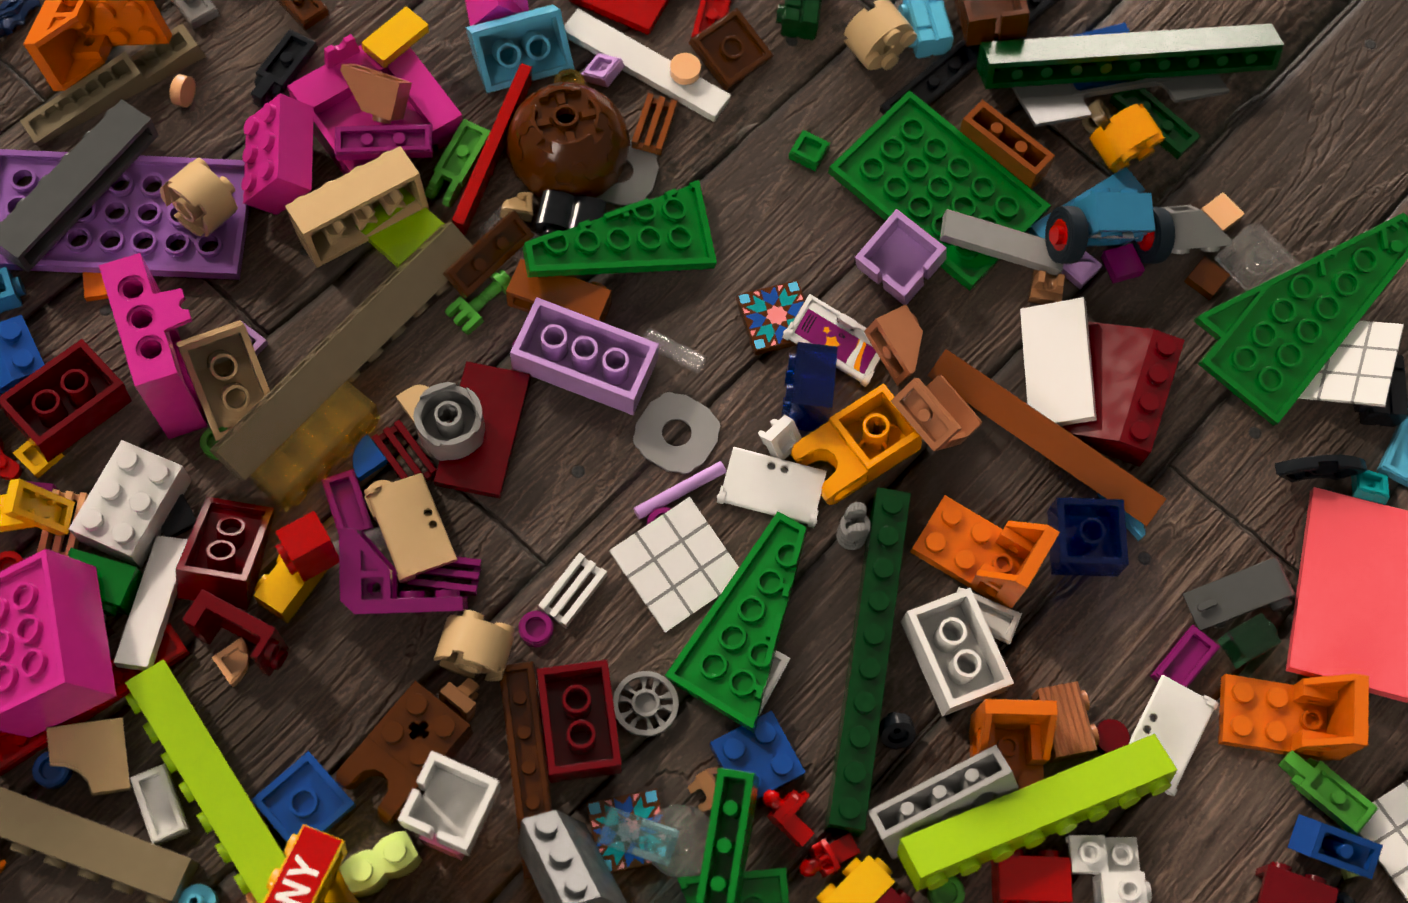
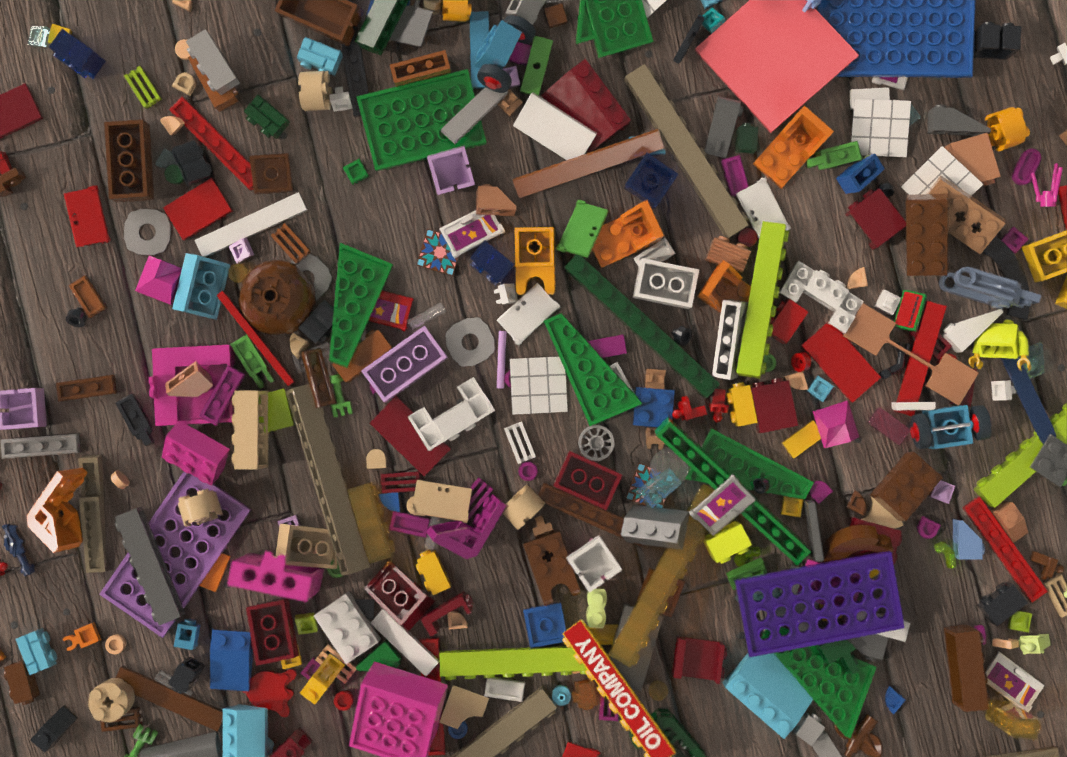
camera: 50 degrees left, 20 degrees up
(102, 443) = (306, 623): none -> lime tile
(306, 547) = (430, 560): red brick -> none
(395, 37) = (160, 352): yellow tile -> none
(453, 439) = (392, 459): light grey brick -> none
(548, 470) = (455, 419): none -> white bracket
(647, 302) = (392, 311): none -> door
(685, 68) = (269, 207): light nougat tile -> none
(803, 732) = (655, 378): none -> medium nougat tile
(805, 633) = (609, 346): none -> magenta tile
(858, 527) = (573, 284): light grey hinge -> none
(889, 76) = (340, 100): none -> white tile
(937, 412) = (545, 211): nougat panel -> none
(943, 483) = (579, 233): none -> bright green door
(1137, 287) = (538, 56): none -> bright green tile
(1163, 569) = (685, 151): none -> dark tan brick

